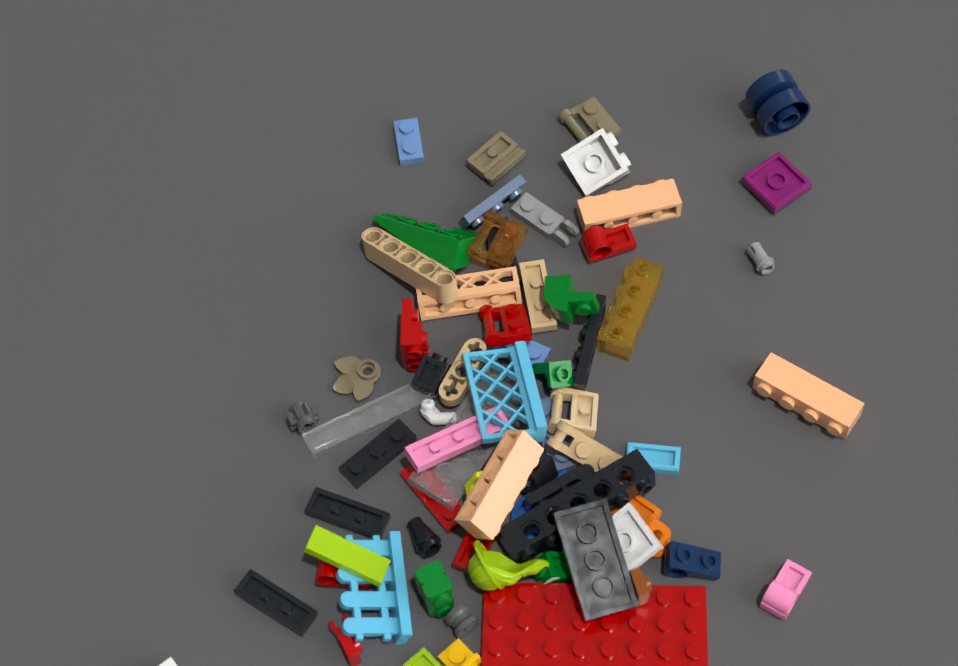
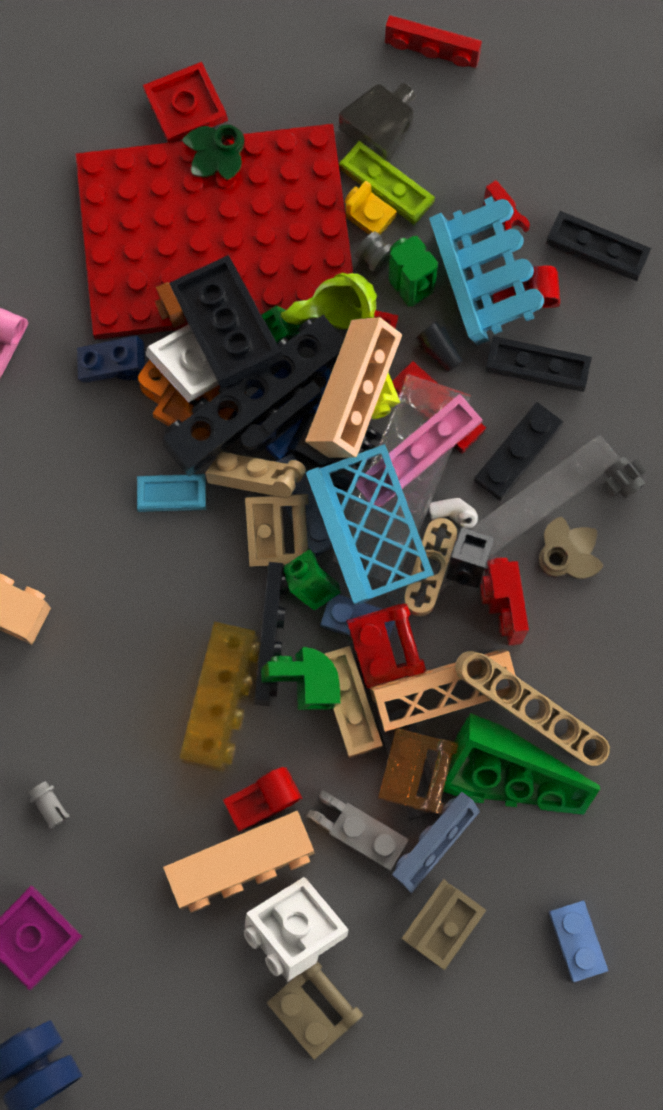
camera: 170 degrees right, 15 degrees up
(347, 555) = (524, 283): lime tile -> none

